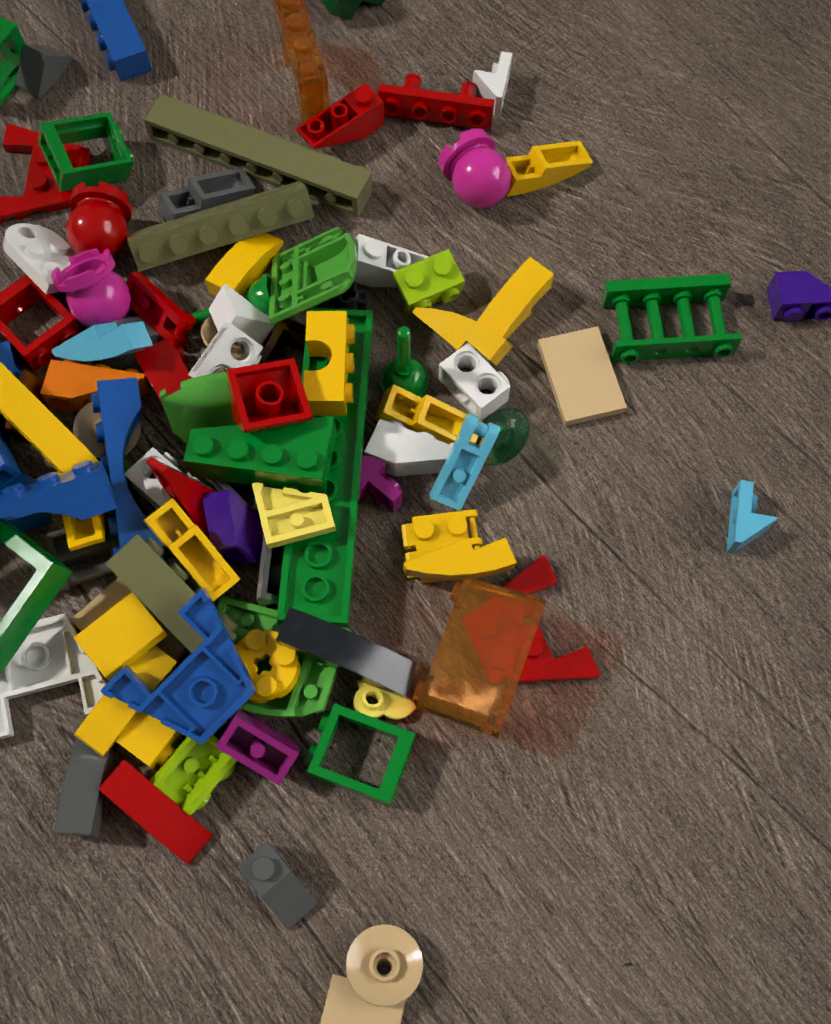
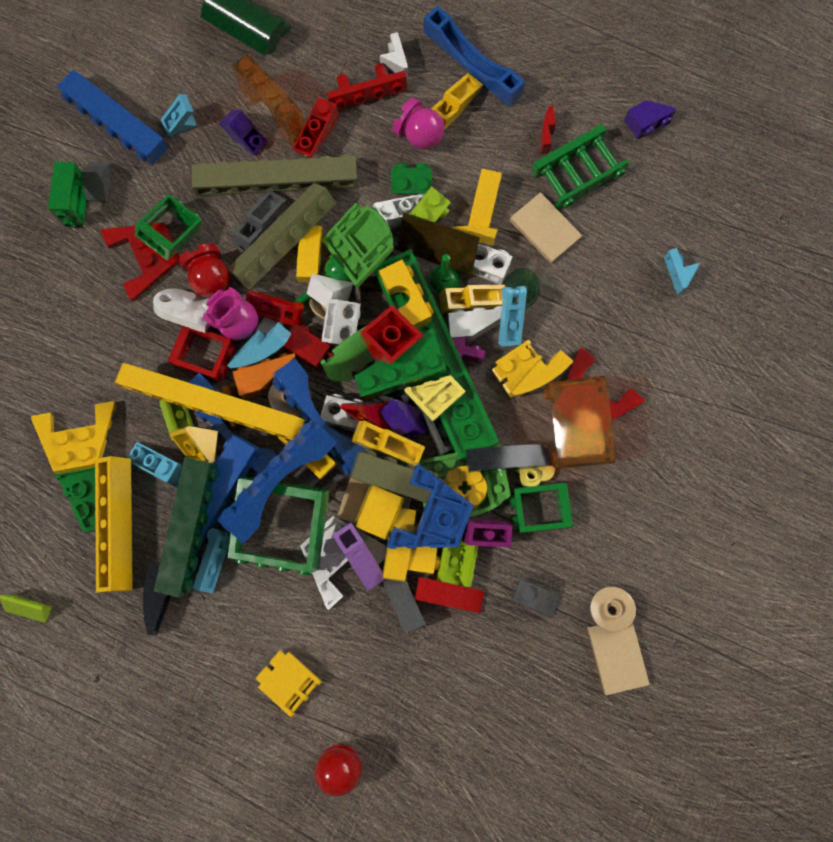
camera: 25 degrees left, 10 degrees up
(58, 682) = (358, 556): none -> medium lavender slope
(184, 39) = (178, 116): none -> medium azure slope
(252, 88) = (243, 131): none -> dark purple slope
(430, 234) = (411, 179): none -> green bracket
(435, 334) = (433, 240): none -> dark brown piece
(614, 161) = (498, 79): none -> blue arch
(650, 250) = (548, 128): none -> red slope

